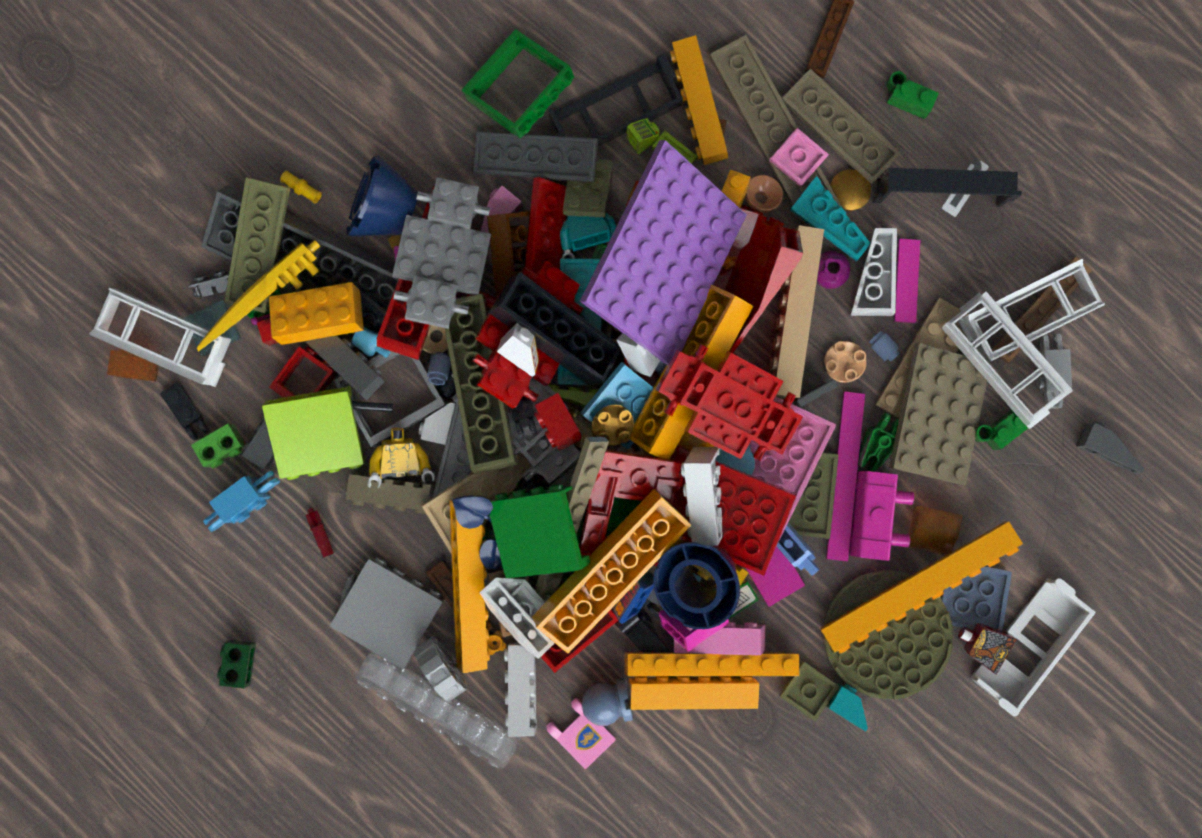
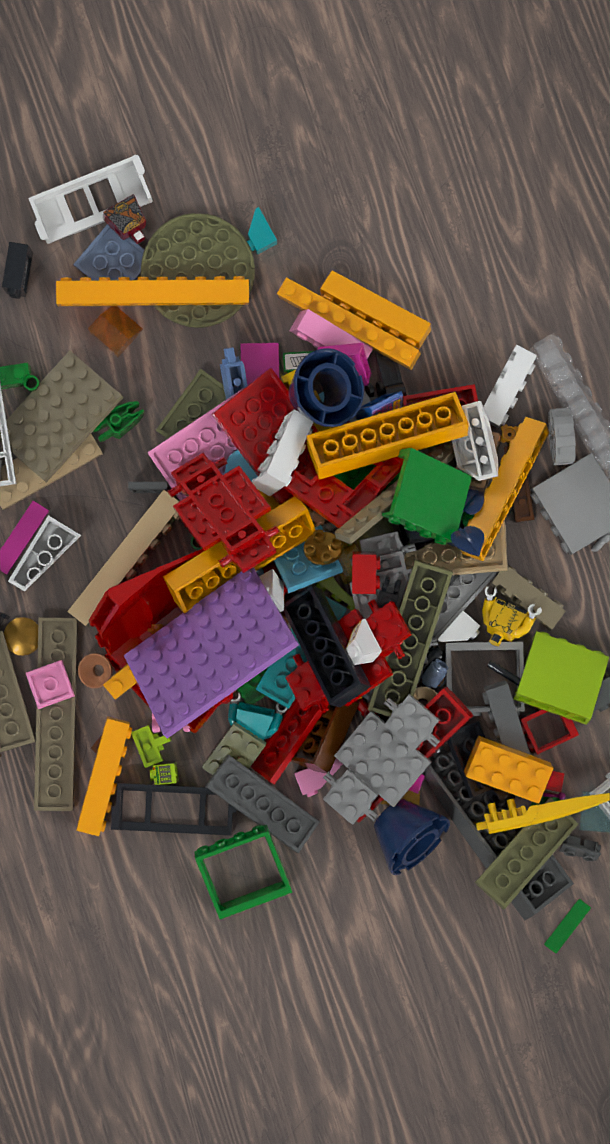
camera: 150 degrees left, 0 degrees up
(187, 206) = (567, 926): none -> green sticker
(300, 187) = (466, 888): yellow pin -> none
(319, 532) = (601, 597): dark red piece -> none
(367, 343) = (479, 725): medium azure piece -> none
(582, 738) = (479, 322): bright pink flag -> none
(606, 703) = (447, 339): sand blue tile -> none
(809, 691) = (284, 261): olive plate -> none
(821, 211) = (56, 623): teal wing -> none
(827, 279) = (84, 575): magenta piece -> none
(845, 361) = (107, 500): light nougat dish -> none
(848, 452) = (158, 410): dark pink tile -> none
(875, 515) = (155, 367): dark pink piece -> none
(884, 346) = (69, 494): sand blue brick -> none
(1064, 535) = (17, 270): none -> black window

